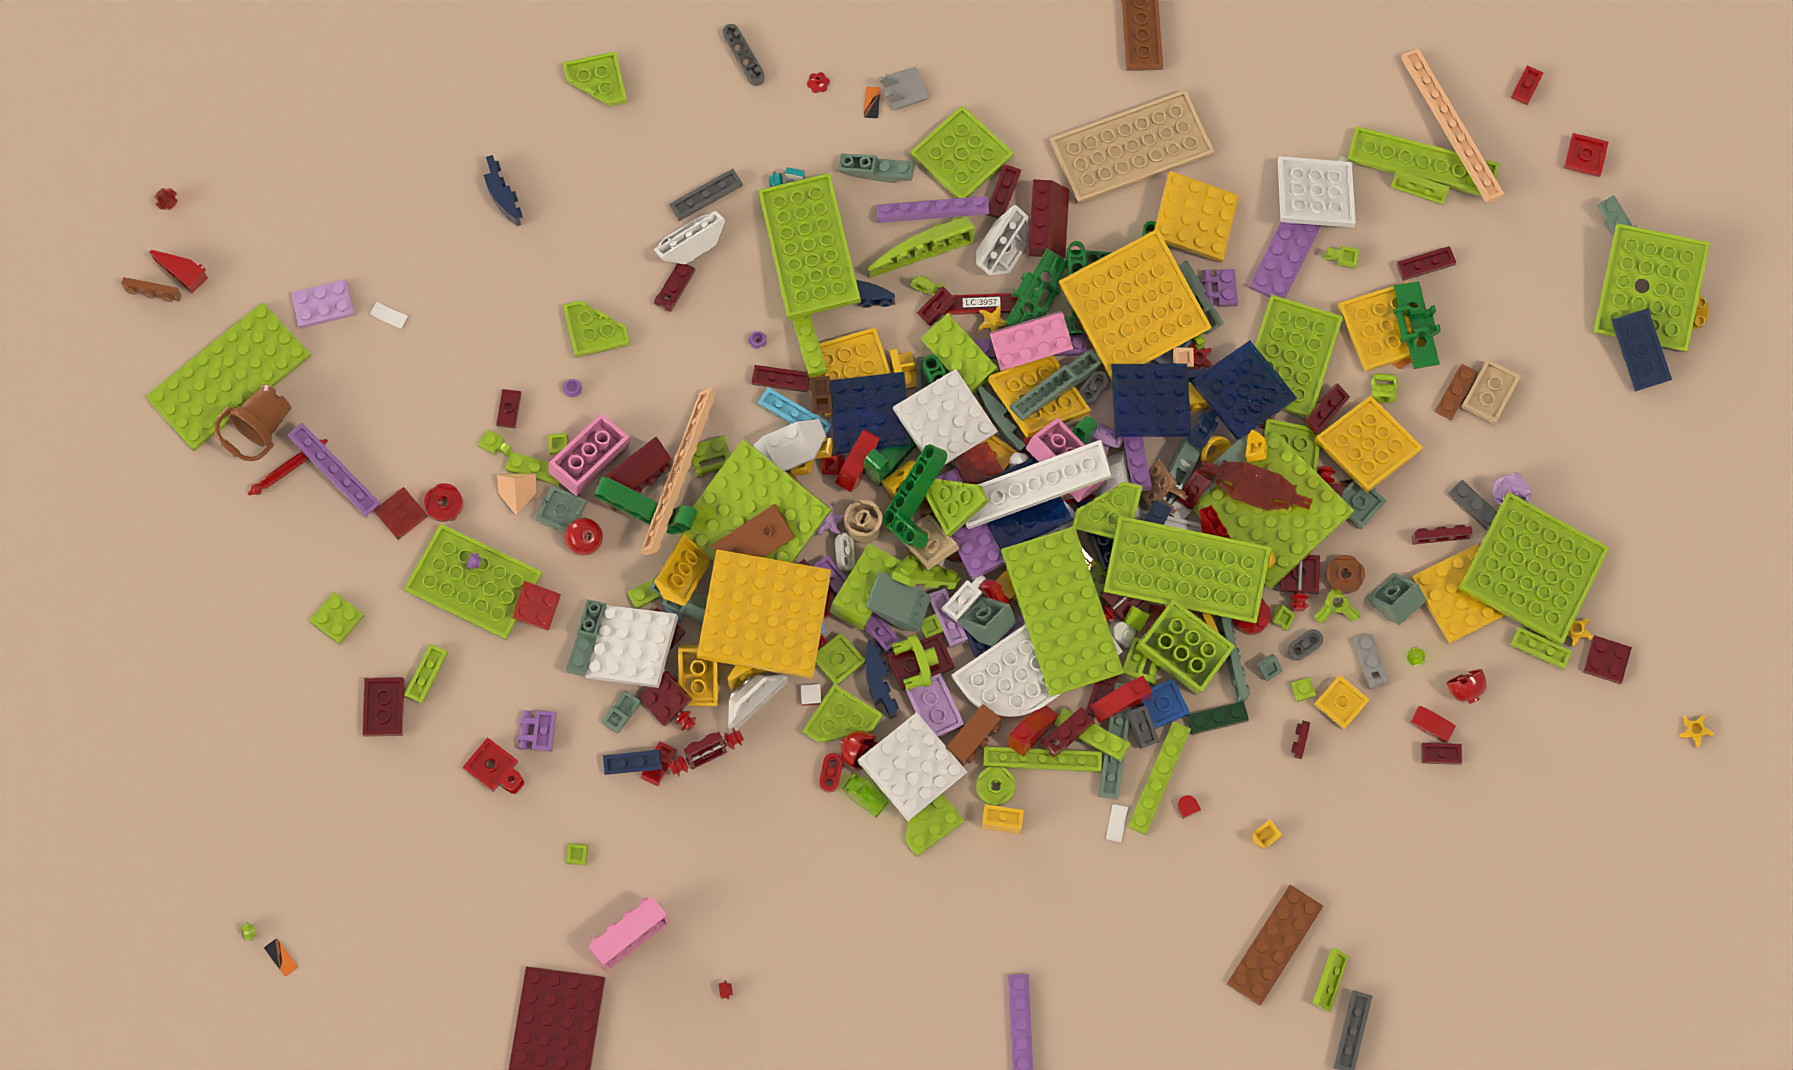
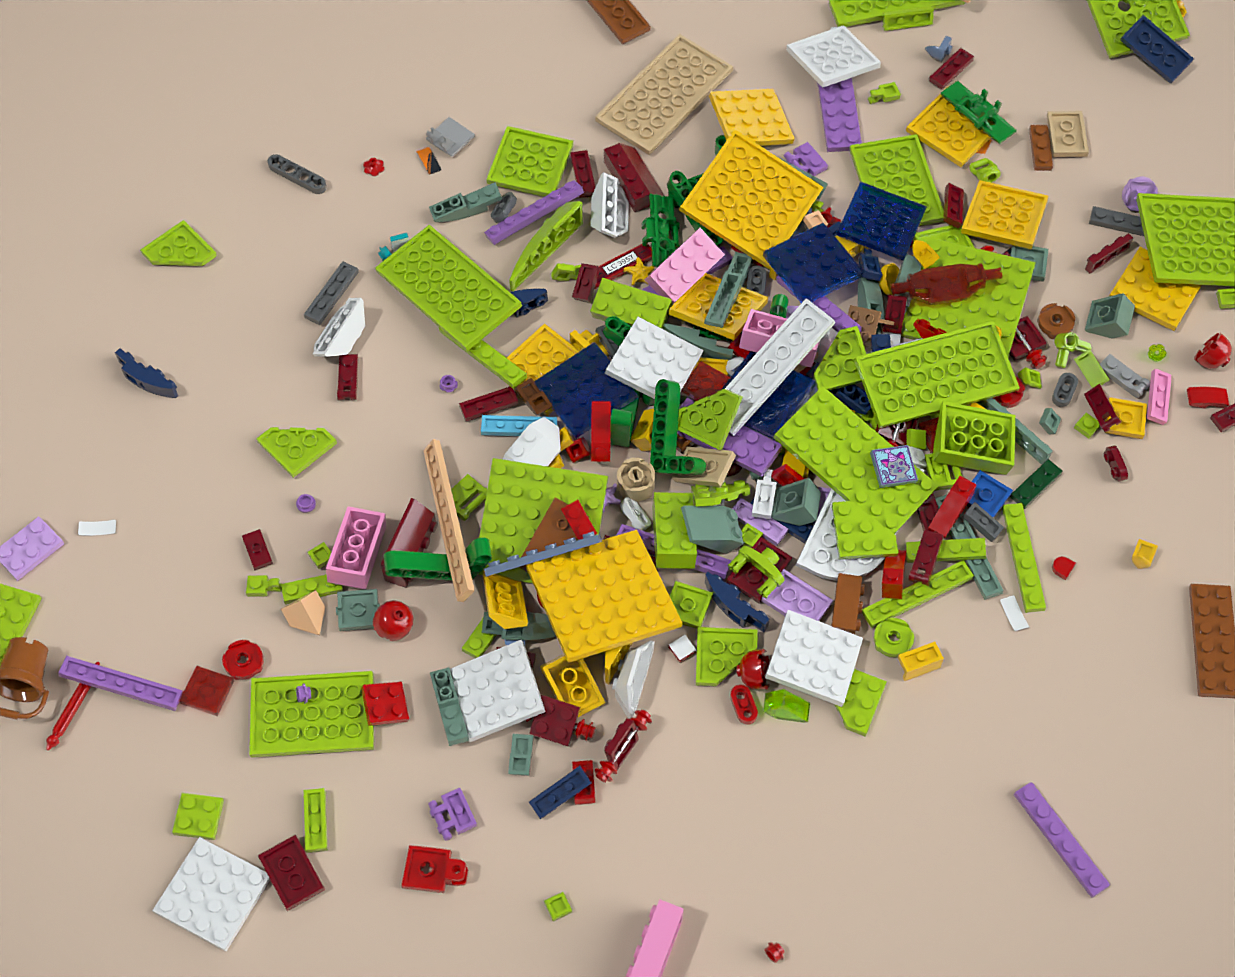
camera: 30 degrees left, 10 degrees down
(314, 689) = (212, 894): none -> white plate
(727, 547) = (550, 551): none -> sand blue plate
(781, 537) = (578, 519): none -> red plate
(909, 189) = (504, 207): none -> dark grey plate
(1024, 679) = (860, 534): none -> lime plate
(1090, 635) = (893, 466): none -> tile
(1324, 681) = (1102, 407): none -> dark red plate
(1343, 639) = (1091, 369): none -> lime tile
(1386, 699) = (1159, 396): none -> bright pink plate
(1432, 239) = (940, 52): none -> sand blue plate

